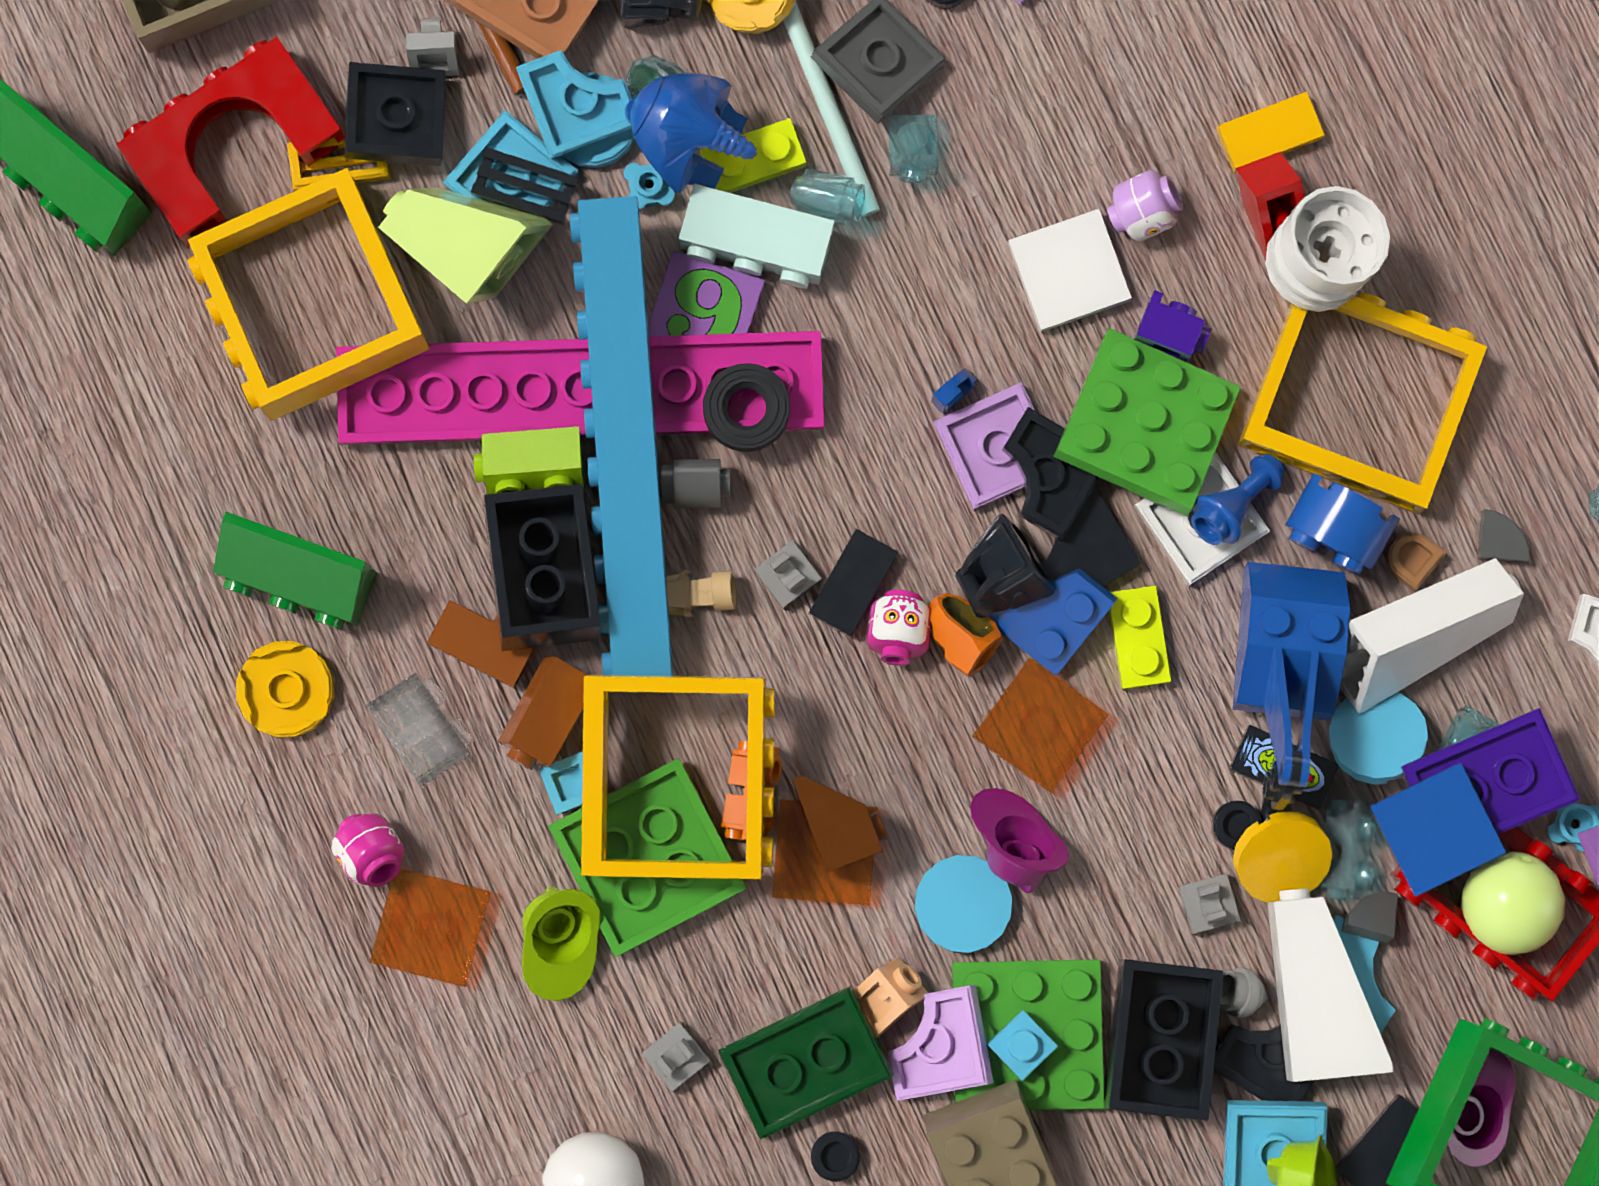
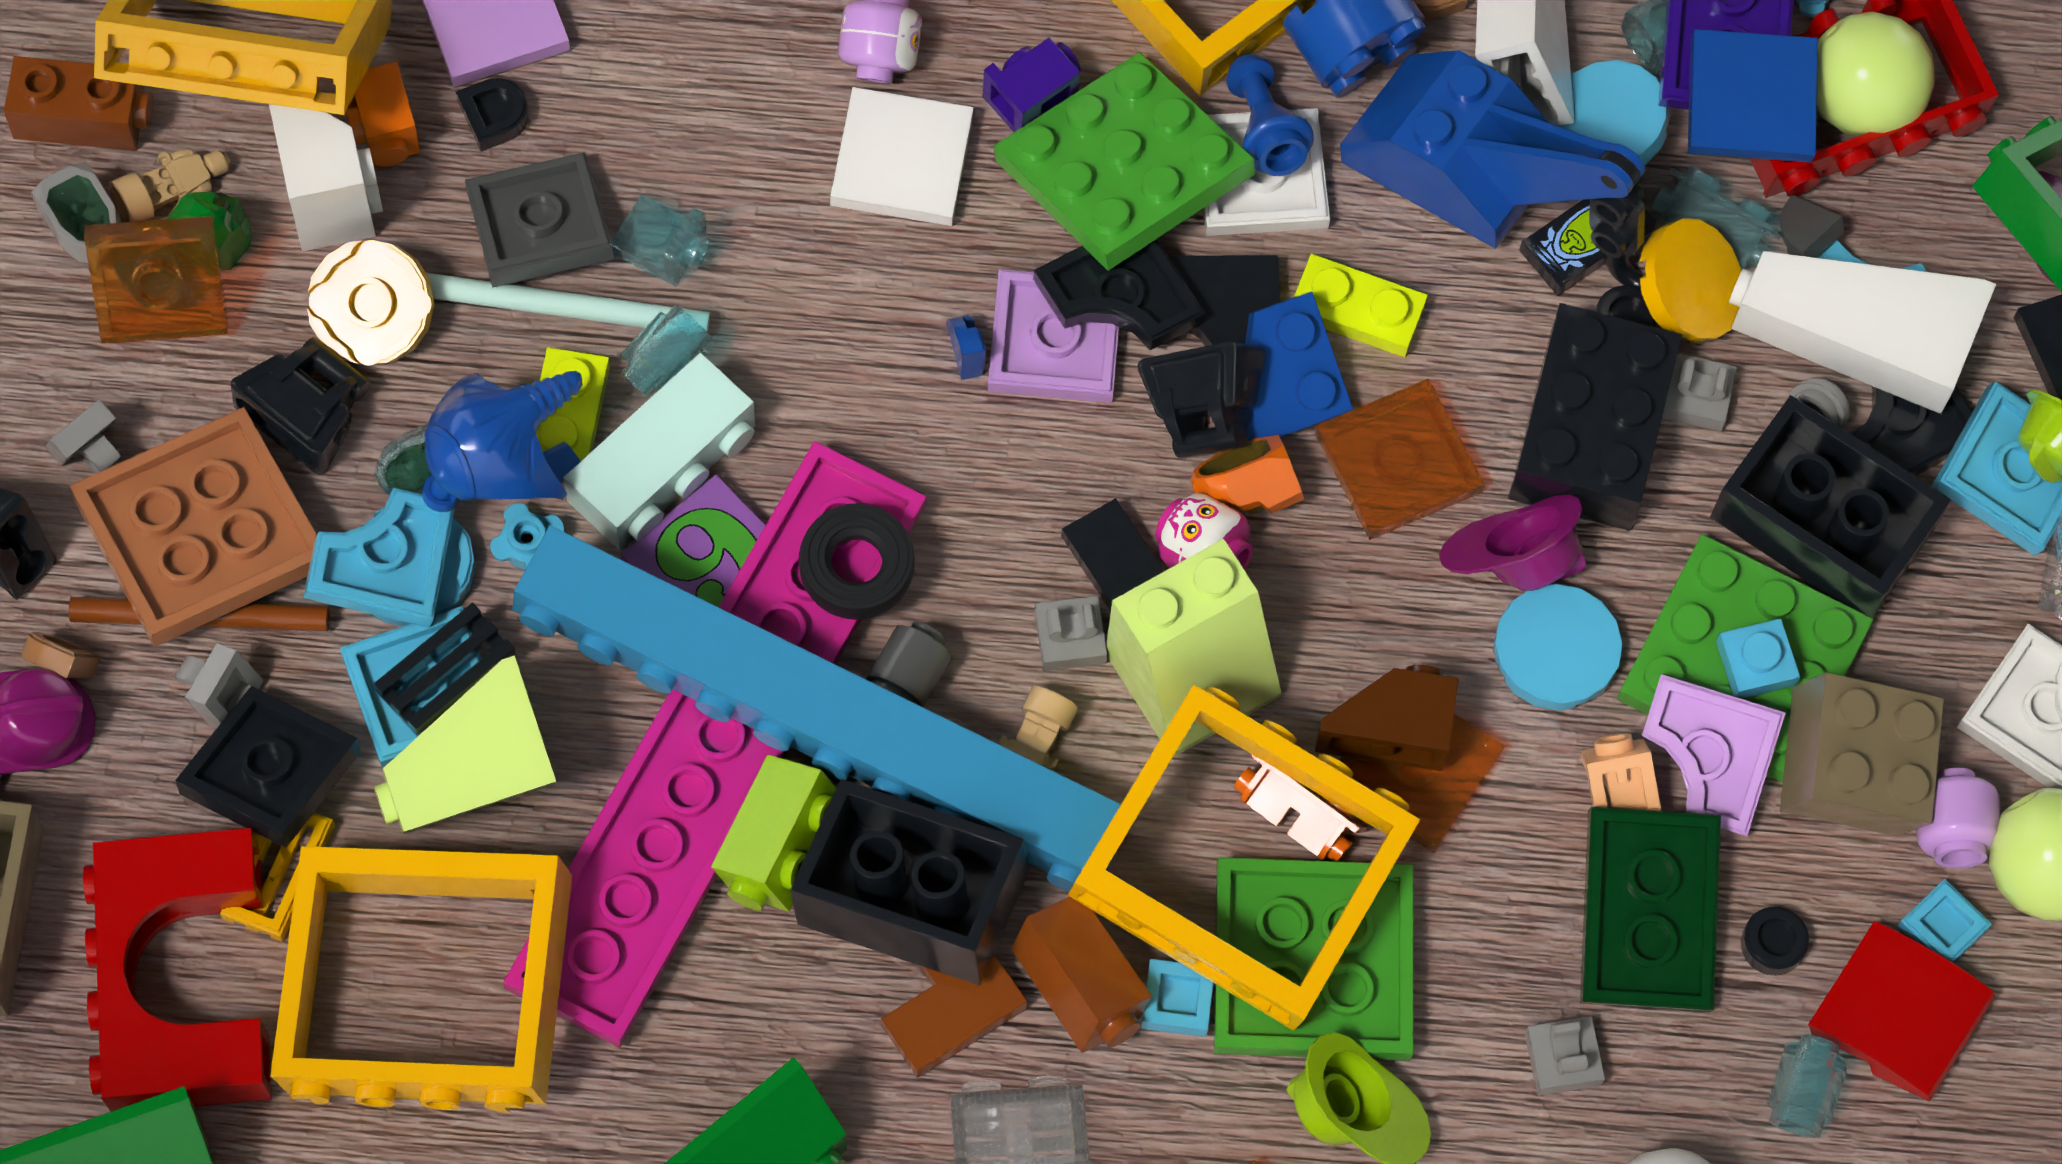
camera: 65 degrees left, 15 degrees down
(810, 663) = (1192, 628): none -> yellowish green slope
(1142, 842) = (1596, 414): none -> black brick

